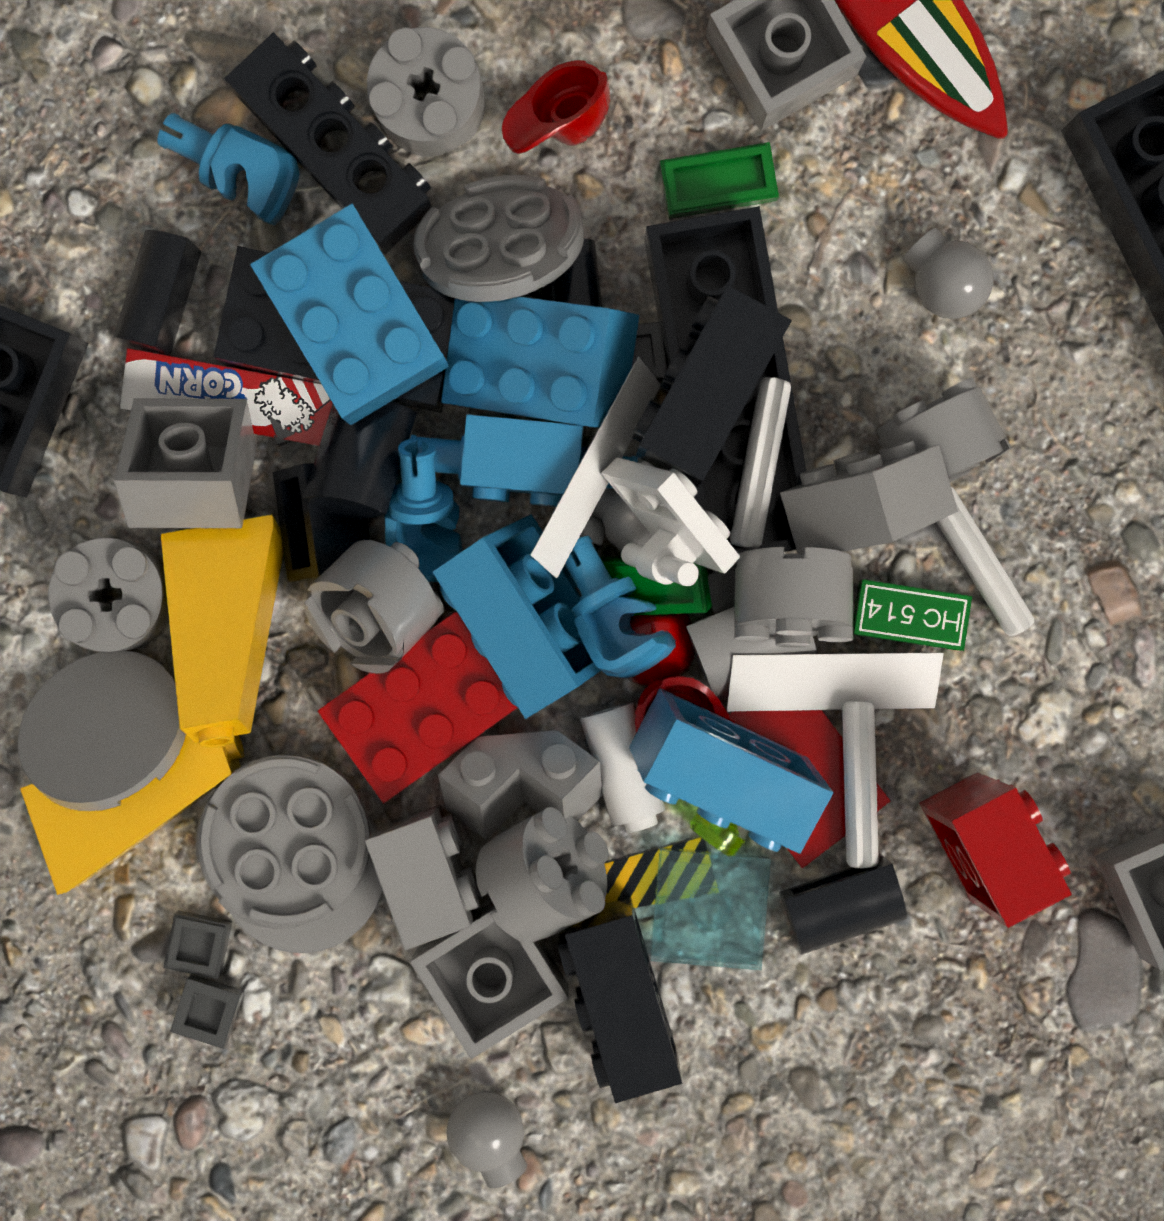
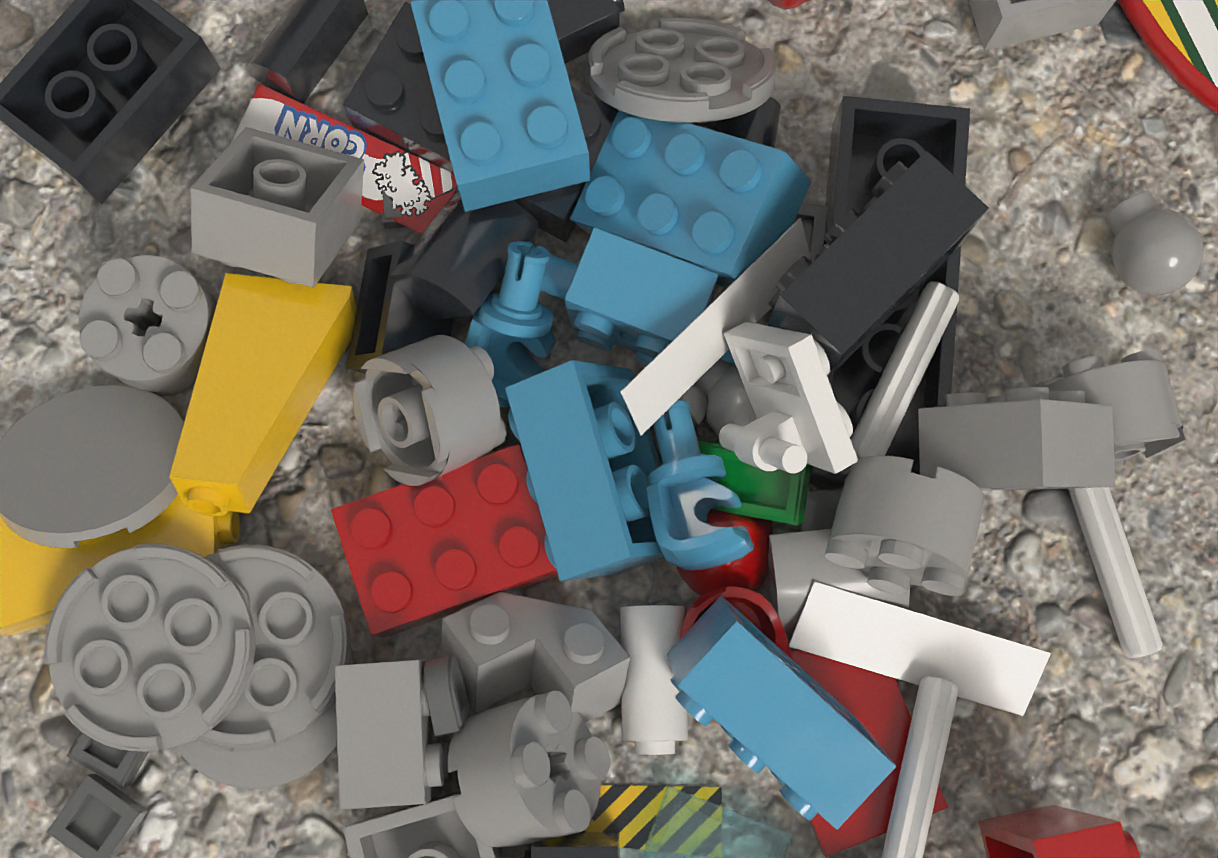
camera: 20 degrees right, 10 degrees down
(207, 866) = (150, 648): none -> light grey tile
(460, 834) = (446, 693): none -> dark grey tile
(719, 180) = (930, 81): green tile -> none
(723, 839) = (740, 783): clear neon green tile -> none
(911, 615) = (1025, 603): green tile -> none

